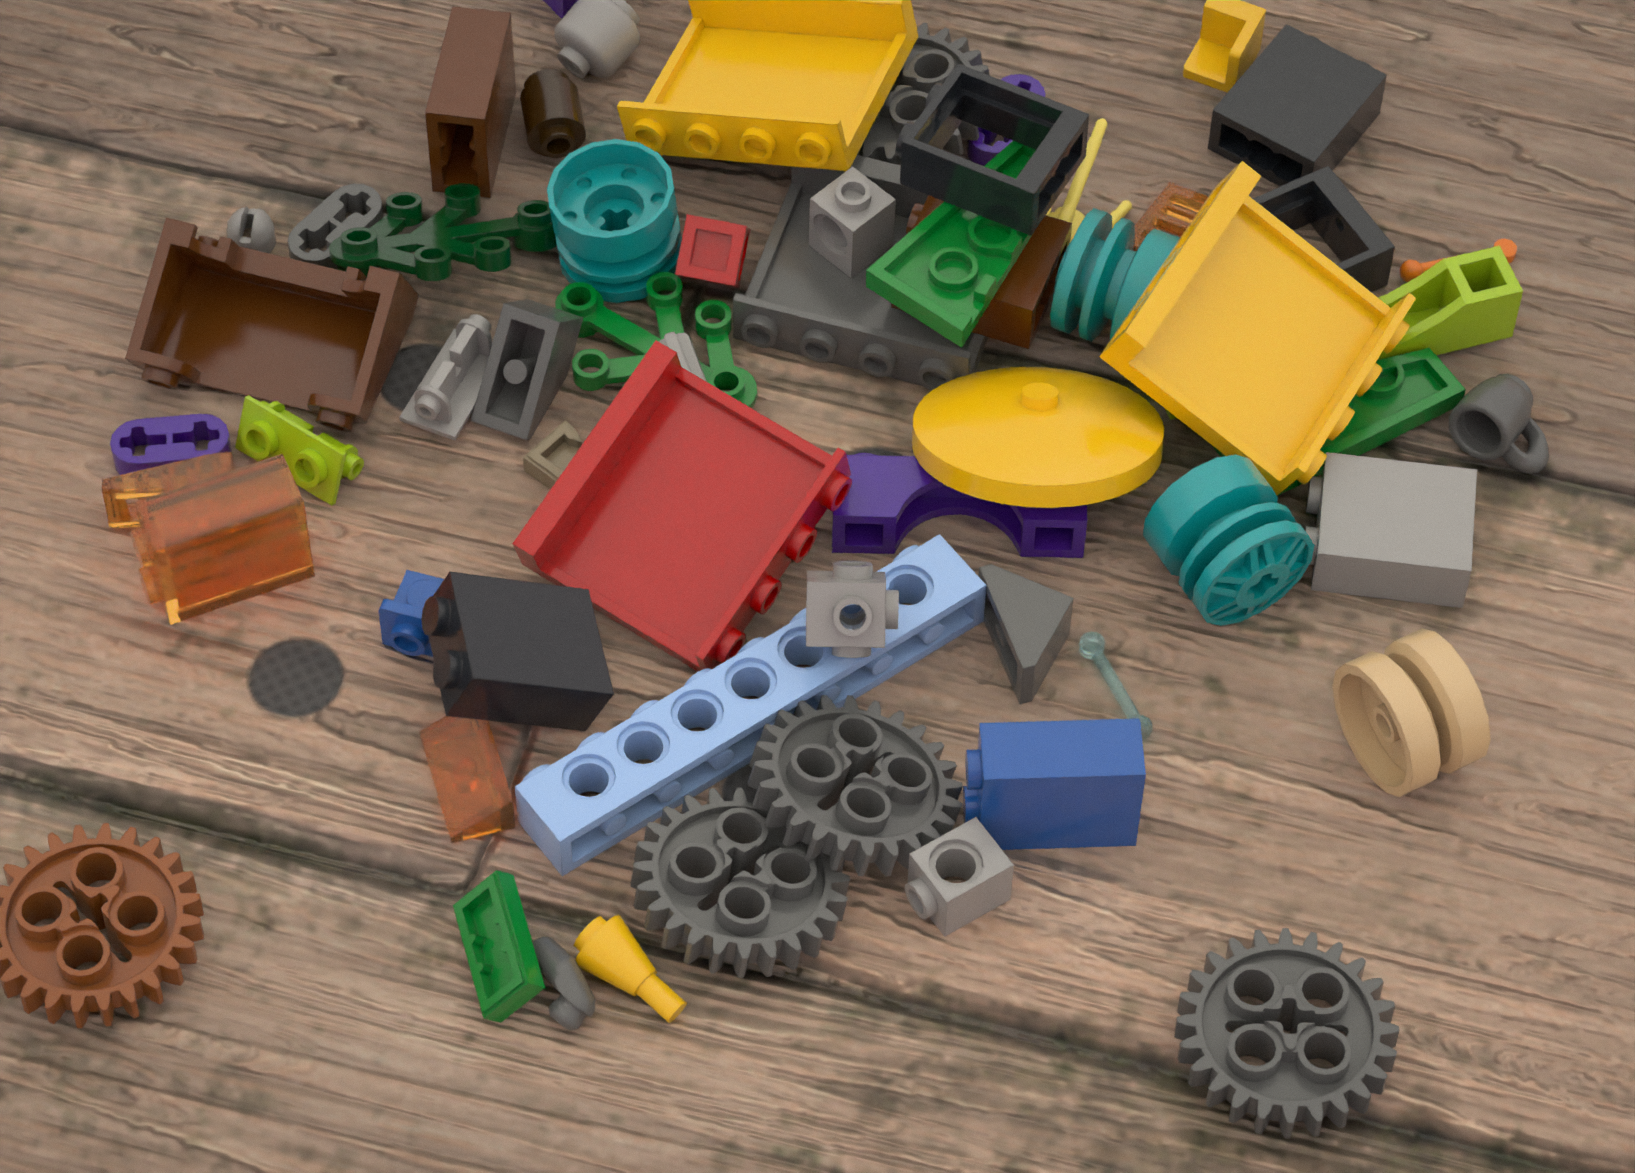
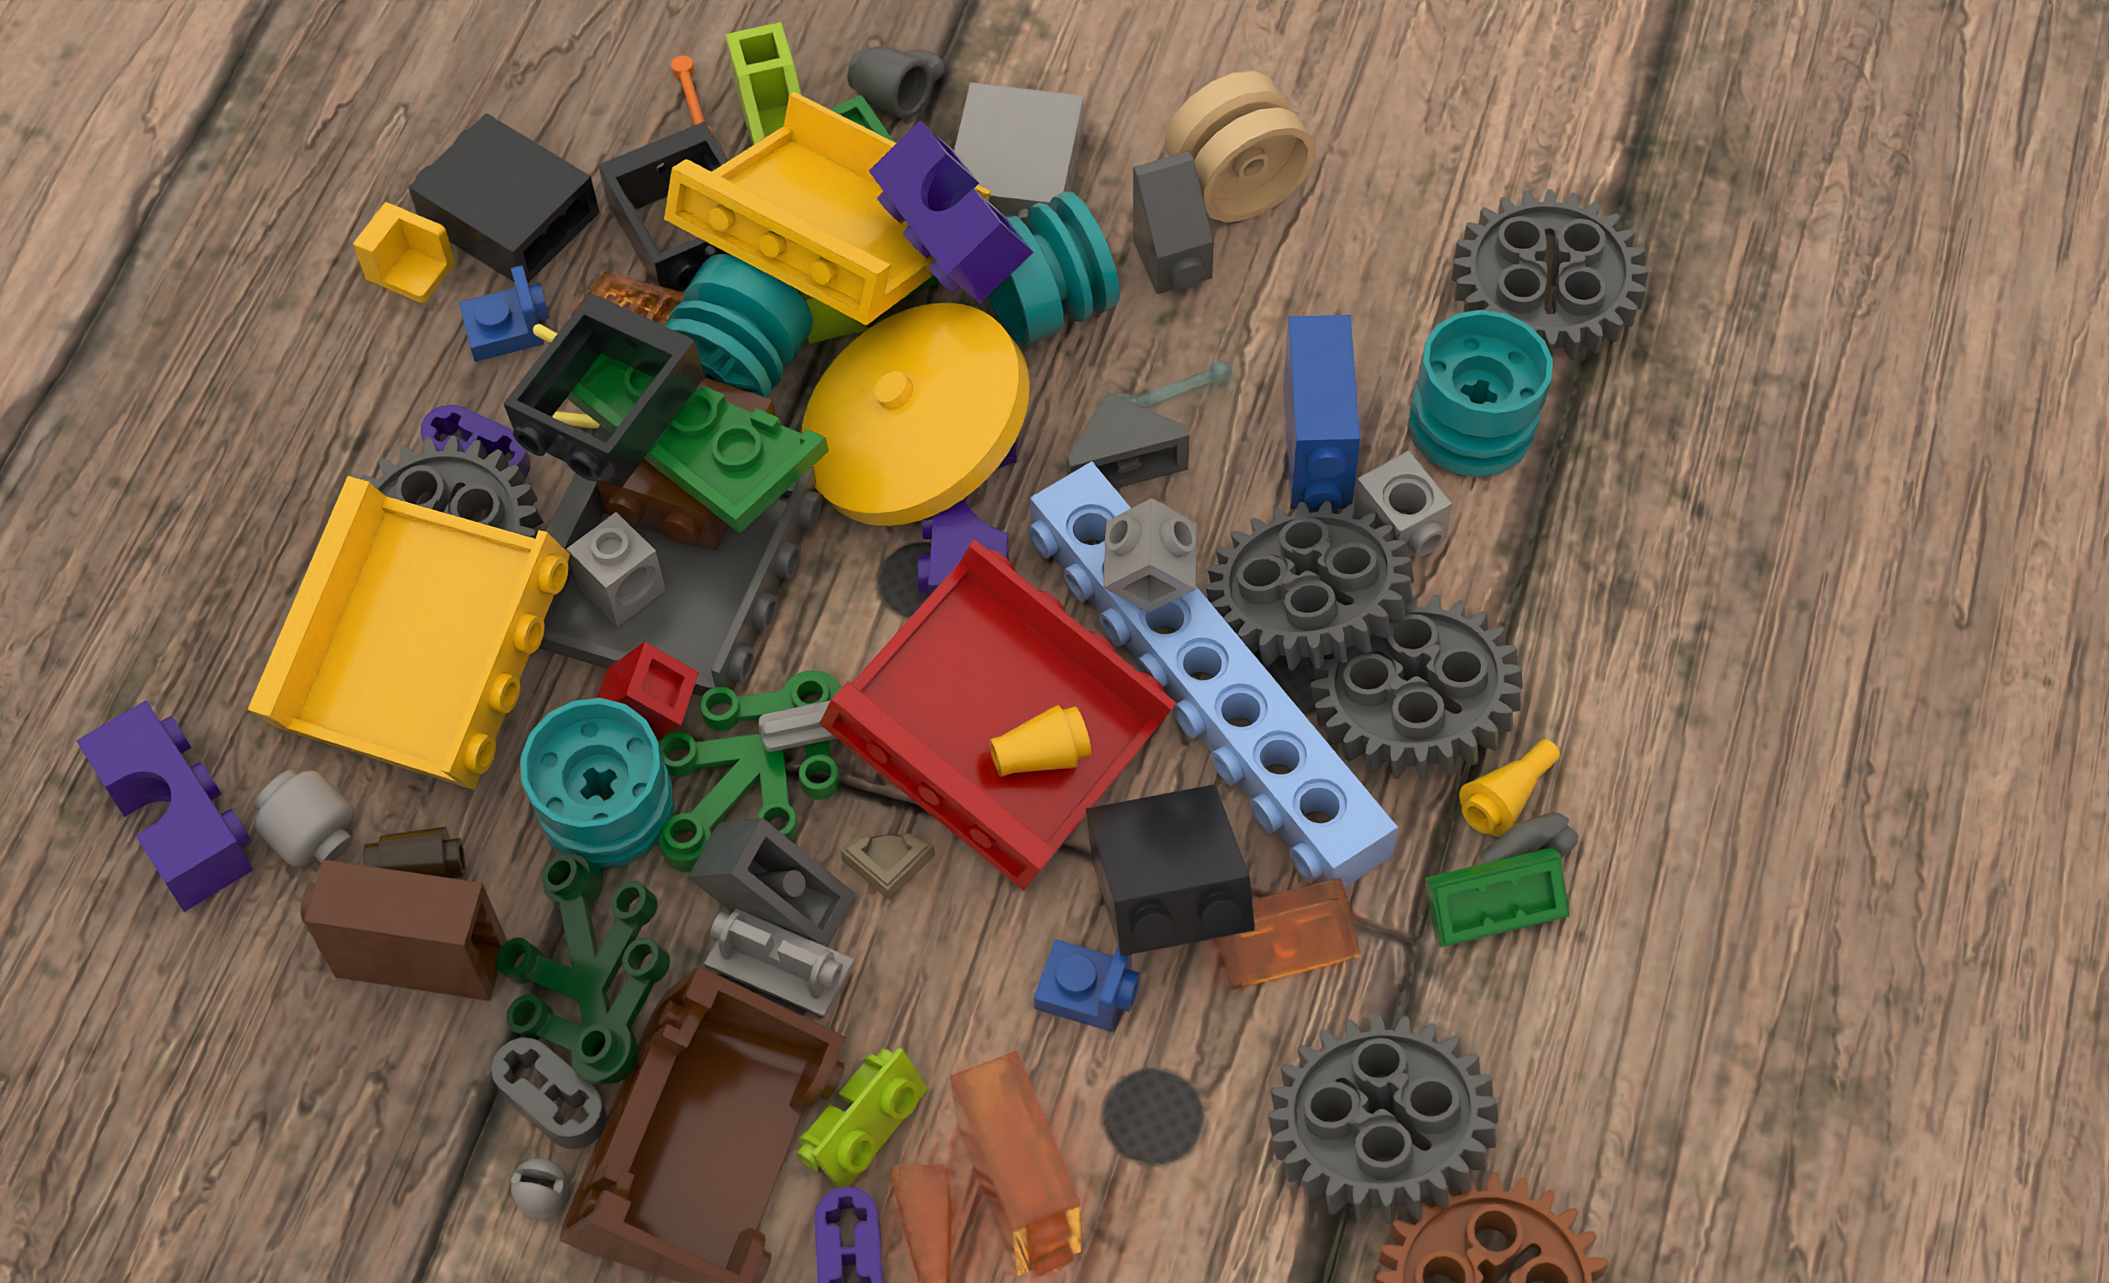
camera: 85 degrees left, 5 degrees up
(263, 836) = (1383, 1119): none -> dark grey gear
(654, 550) = (1042, 743): none -> yellow cone
(1100, 902) = (1479, 392): none -> teal wheel
(1158, 130) = (504, 319): none -> blue bracket
(1202, 422) = (946, 215): none -> dark purple arch
(1298, 655) = (1171, 223): none -> dark grey slope

